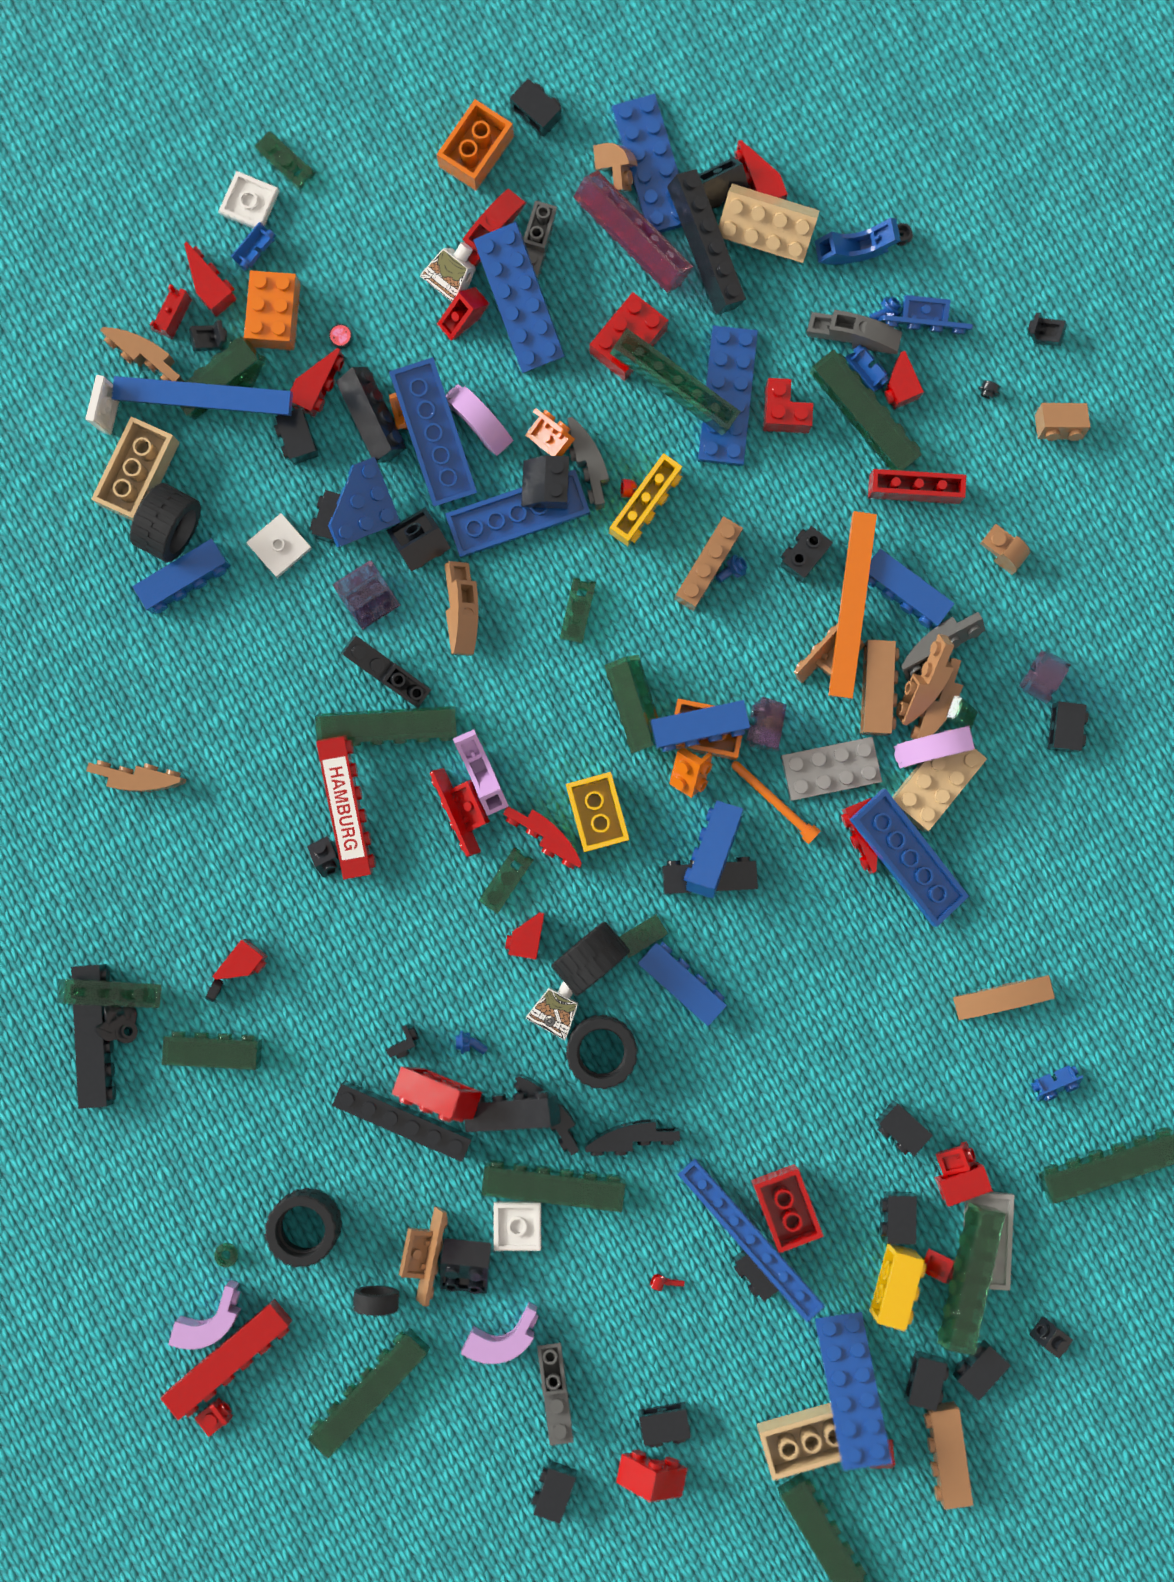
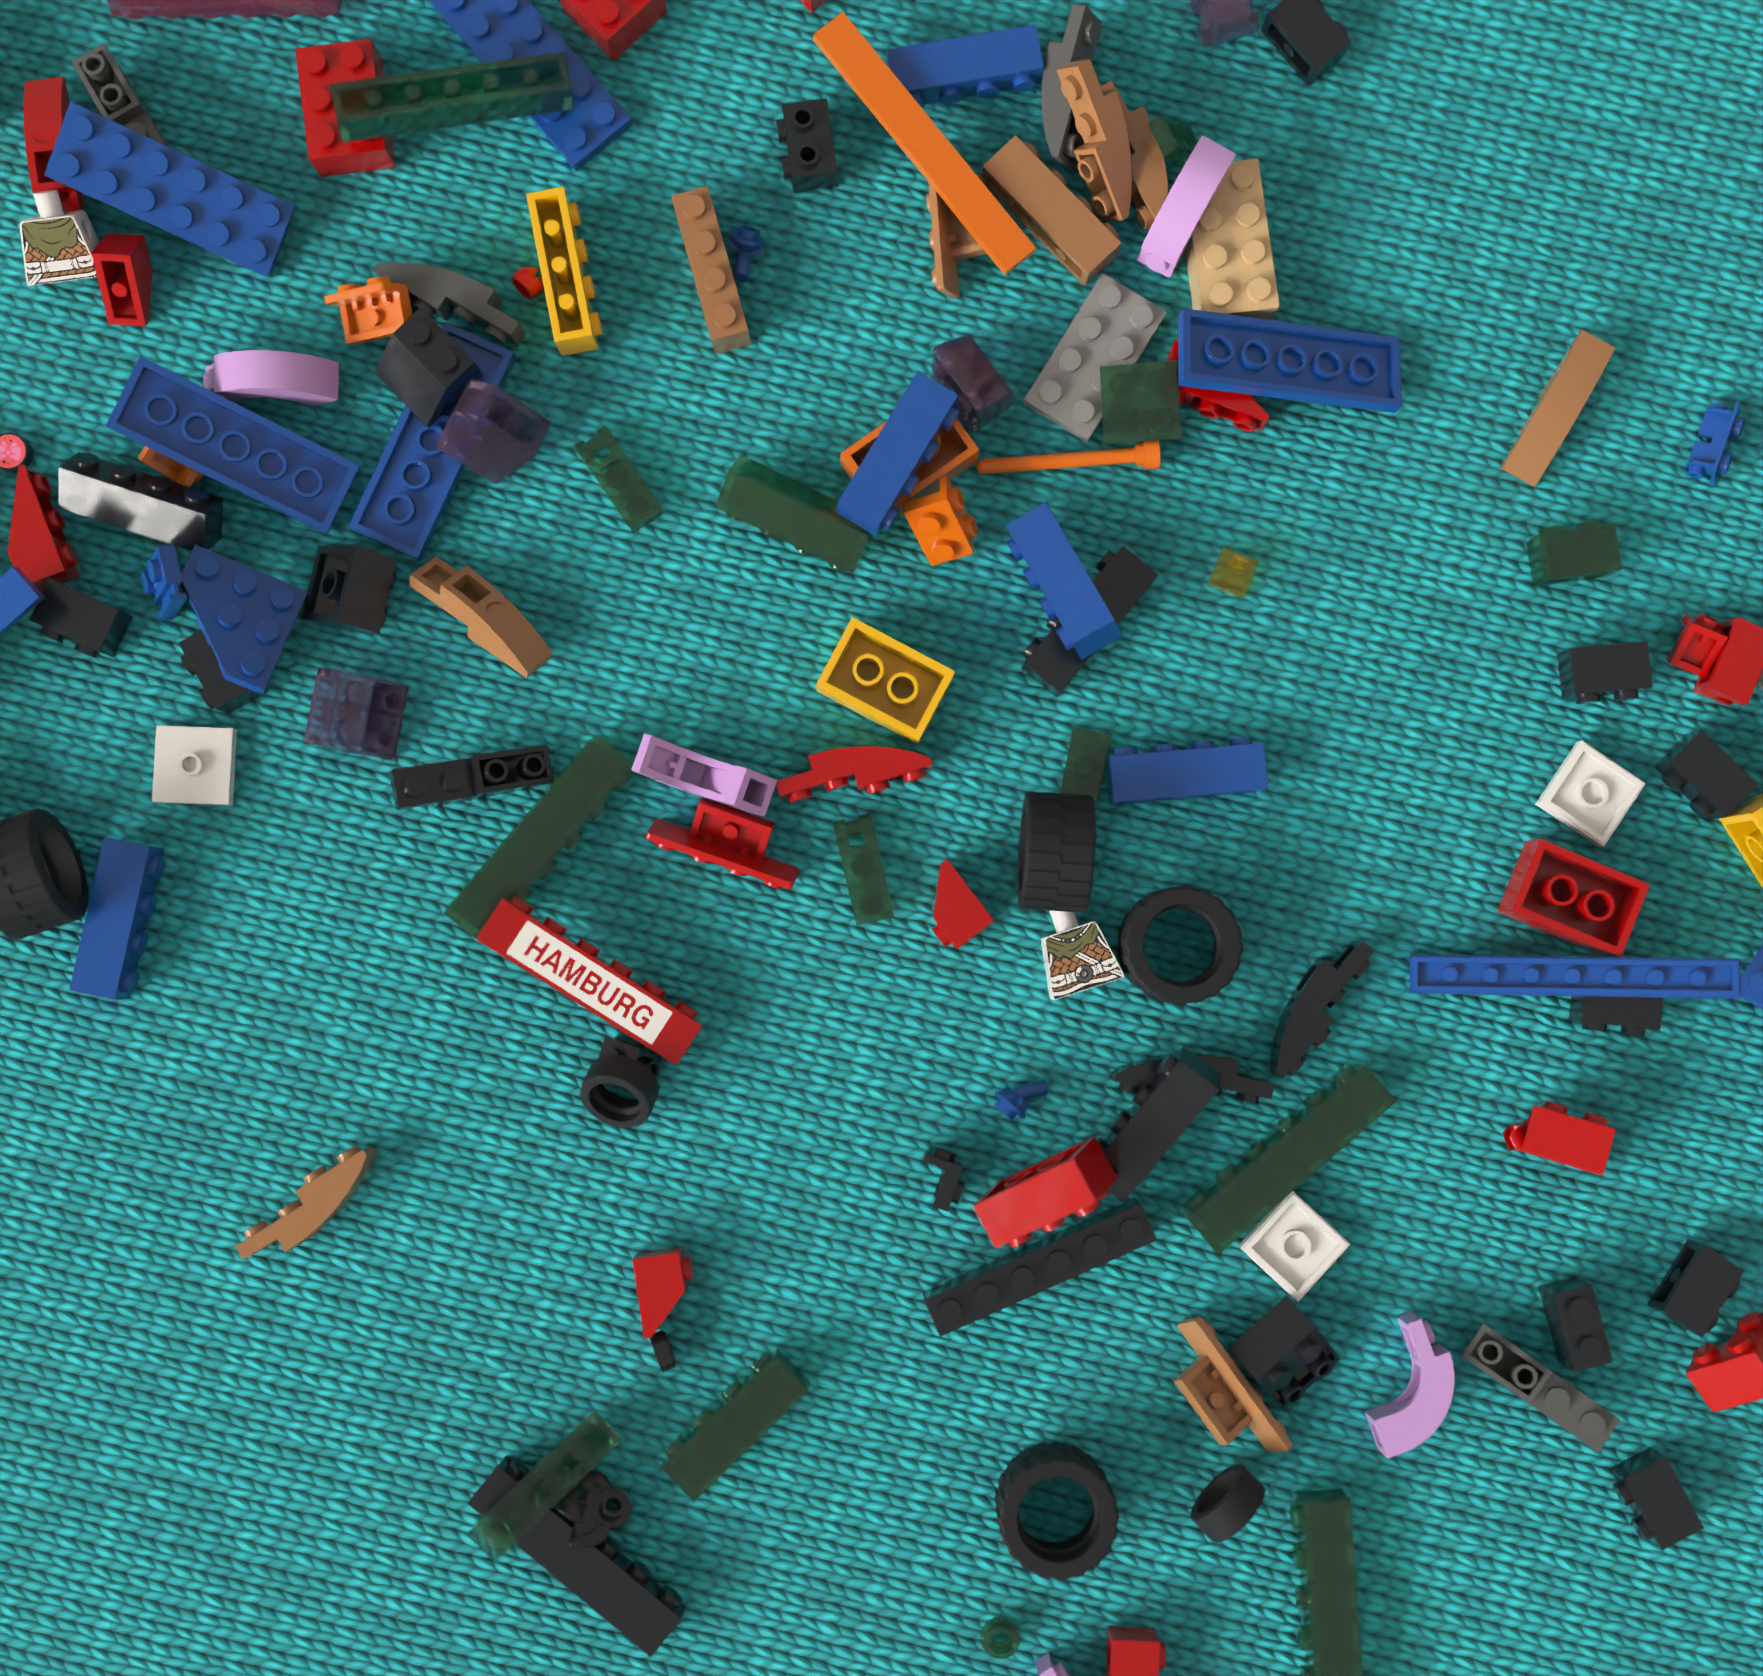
camera: 50 degrees left, 0 degrees up
(318, 860) = (624, 1073): none -> black tyre
(345, 457) = (162, 581): none -> blue plate
(545, 537) = (492, 431): none -> clear purple slope
(598, 1384) = (1575, 1324): none -> black brick
(675, 1305) = (1568, 1139): none -> red brick
(792, 920) = (1232, 573): none -> clear yellow tile
(828, 808) = (1140, 402): none -> clear green hinge
(843, 1173) = (1590, 793): none -> white plate
(944, 1066) = (1573, 554): none -> clear green brick

